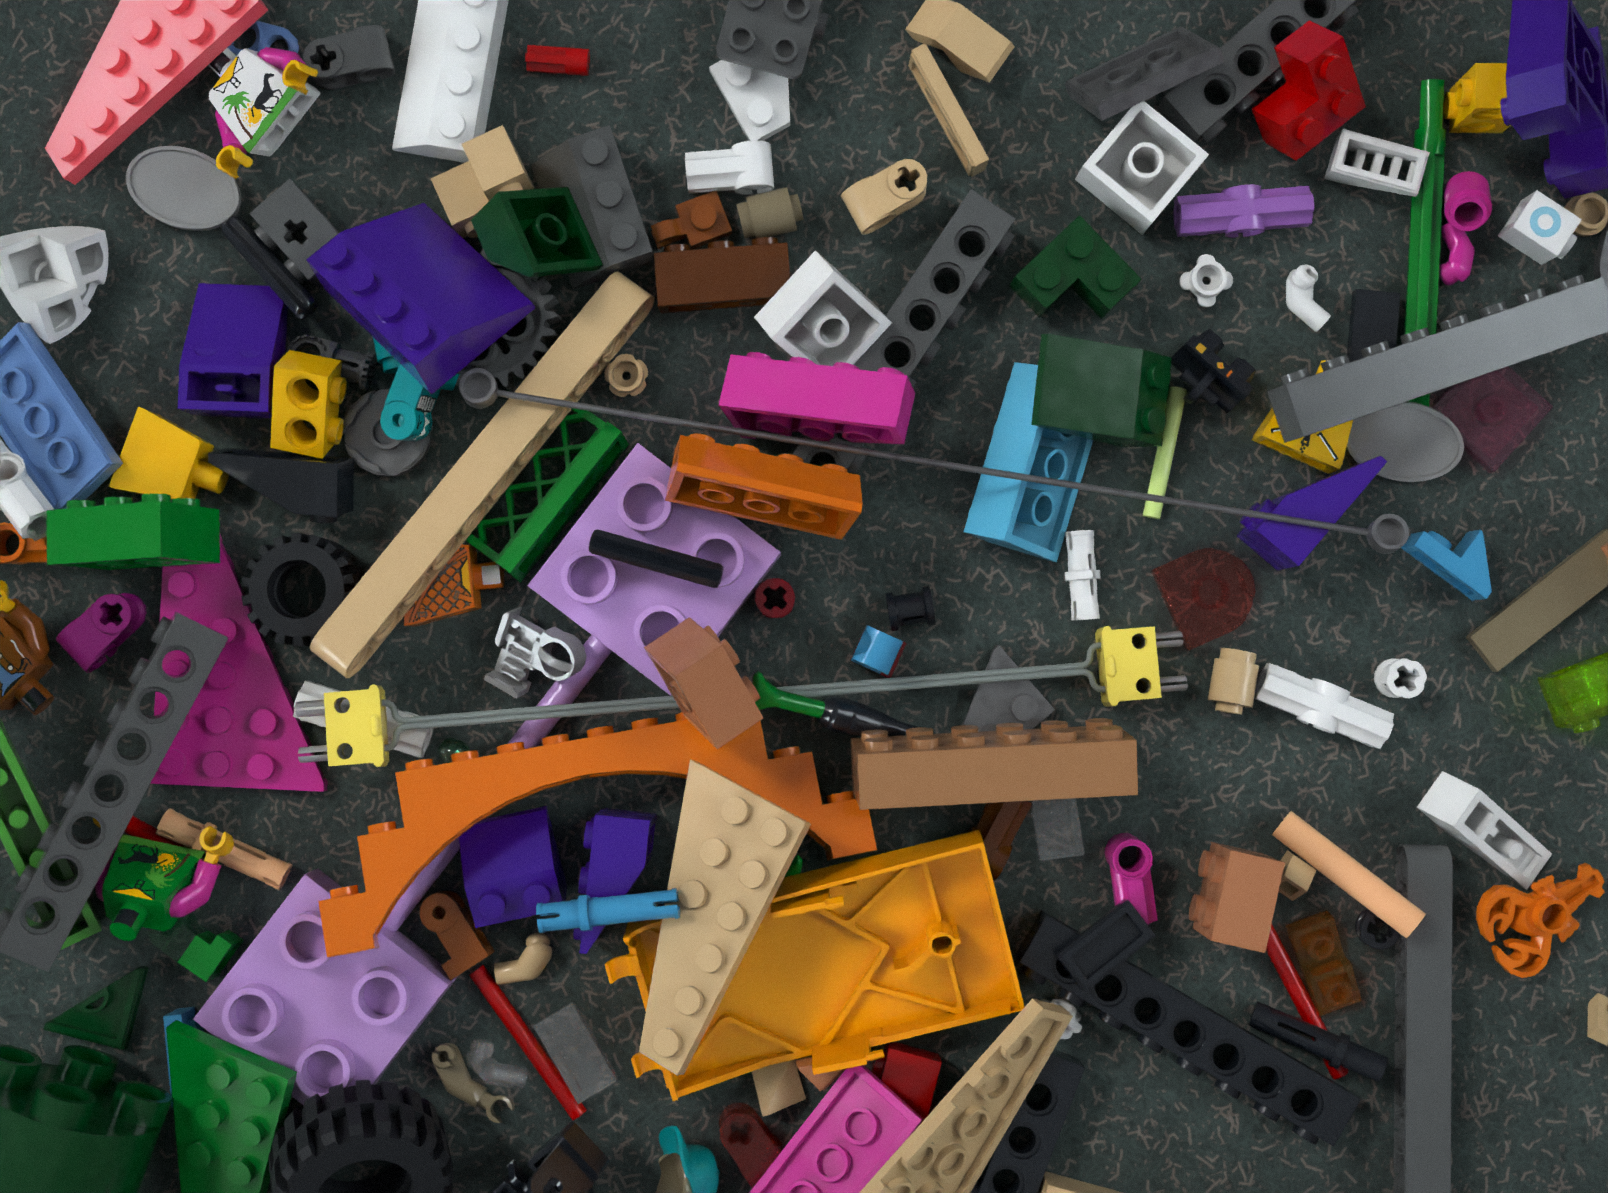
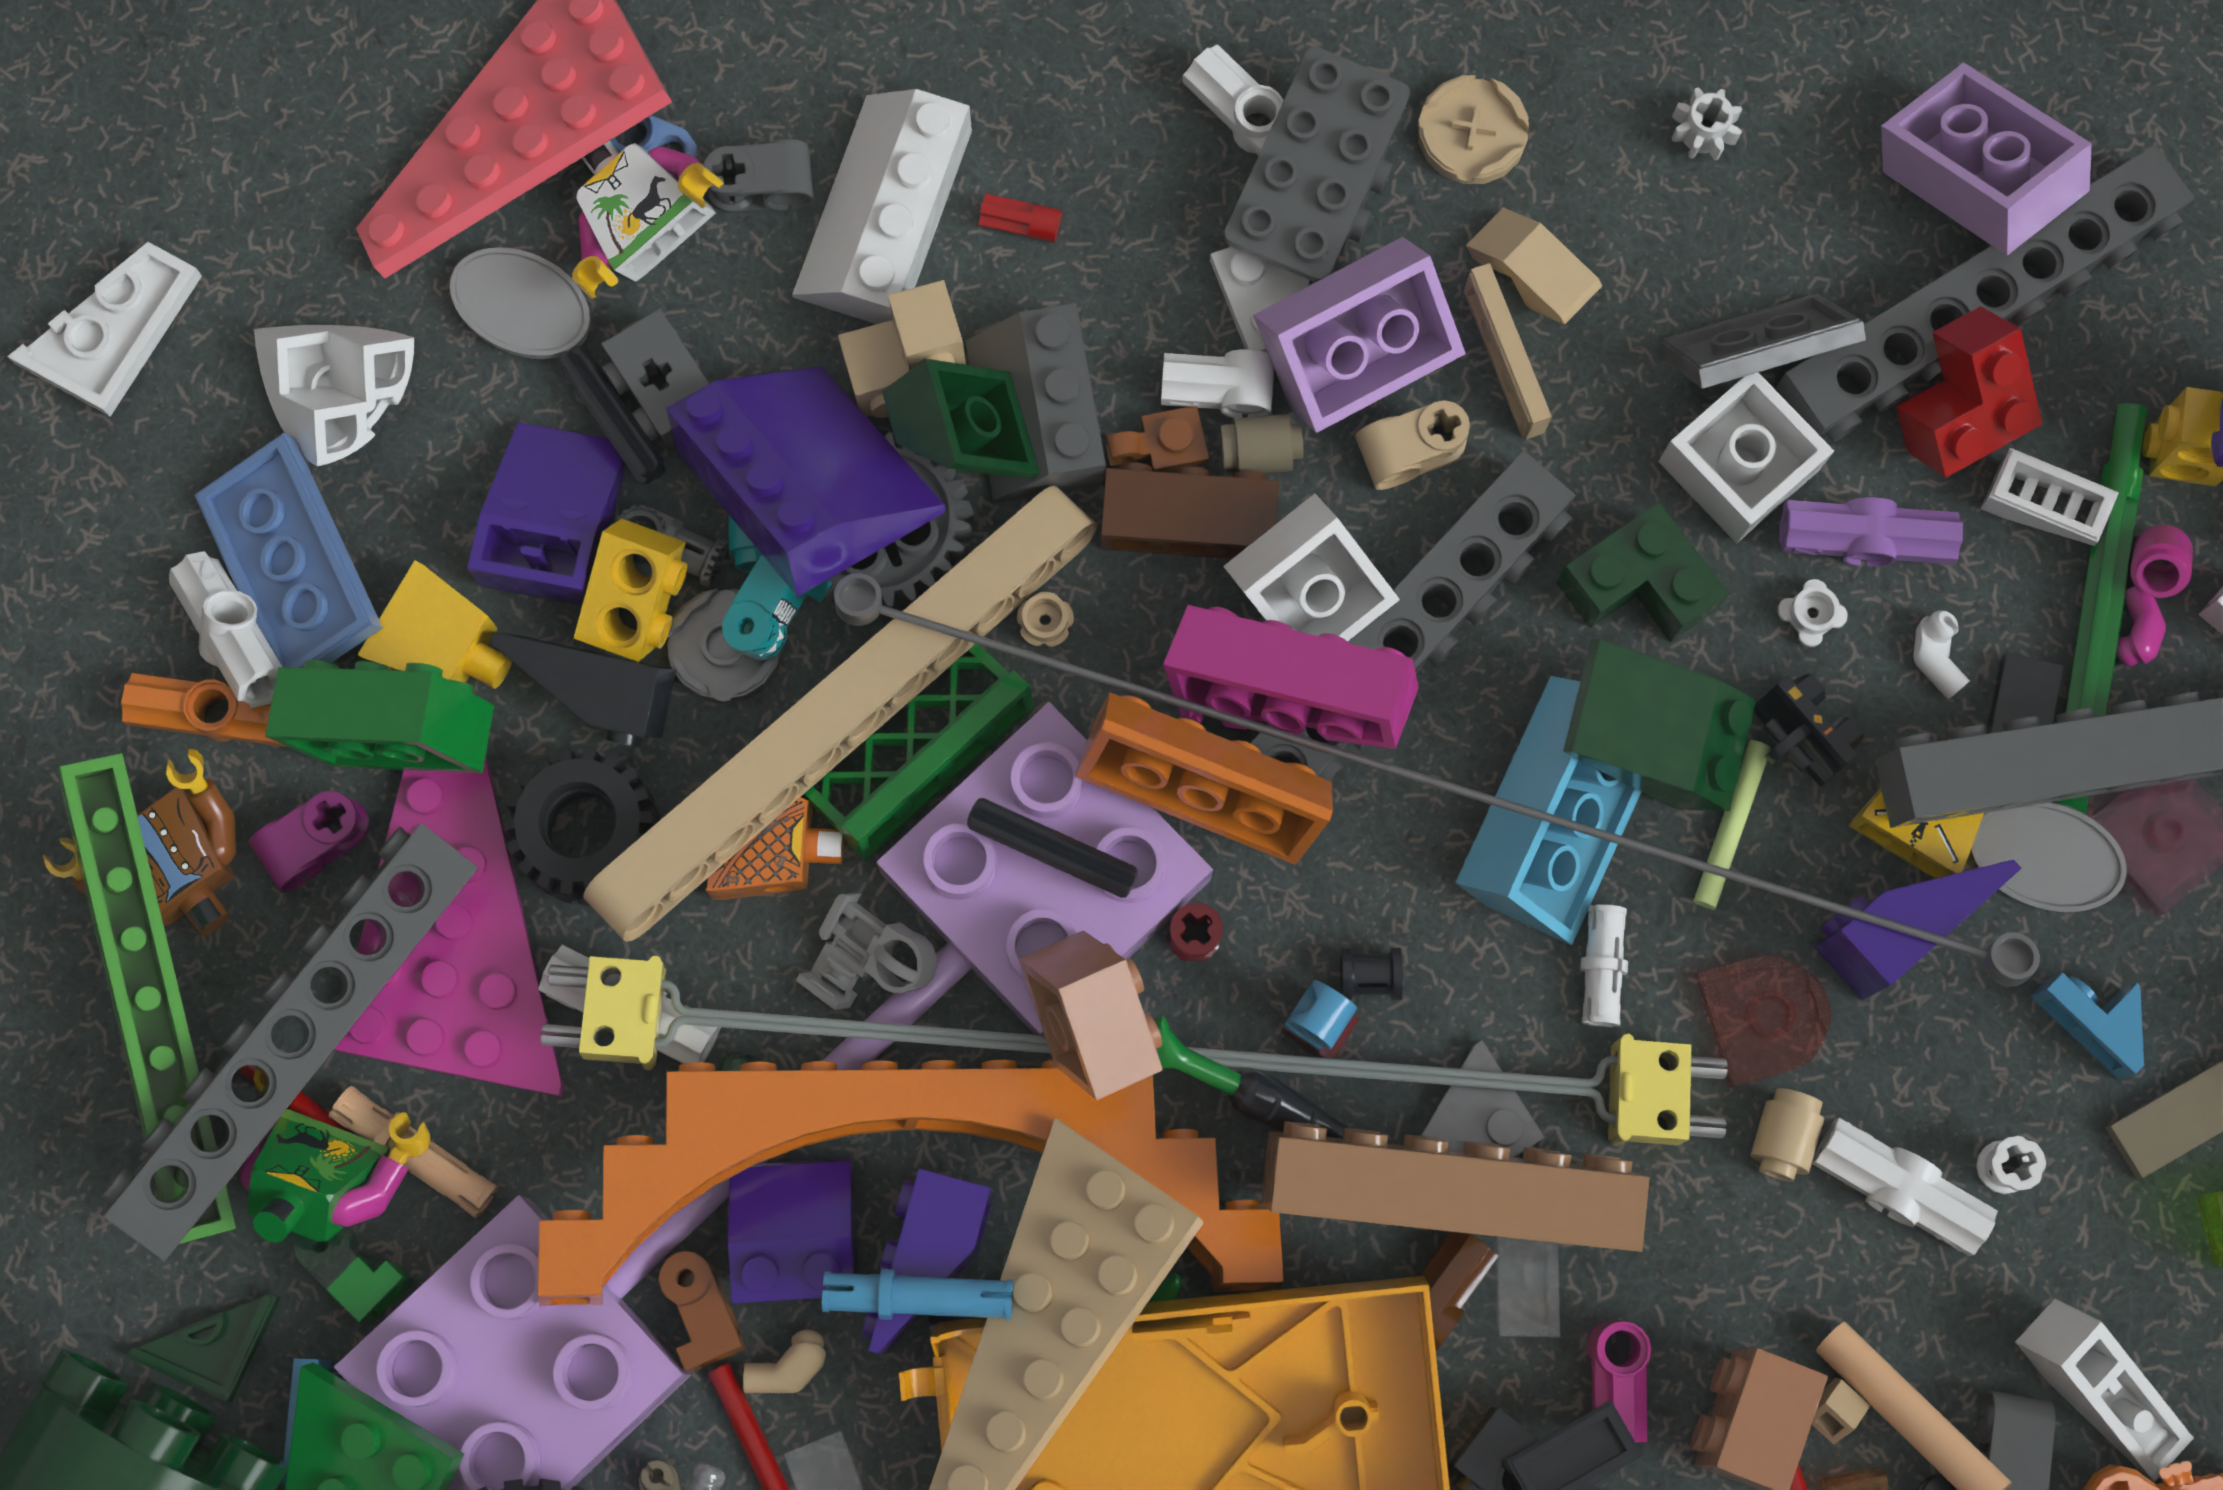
camera: 10 degrees right, 10 degrees down
(832, 115) = (1360, 334): none -> lavender brick

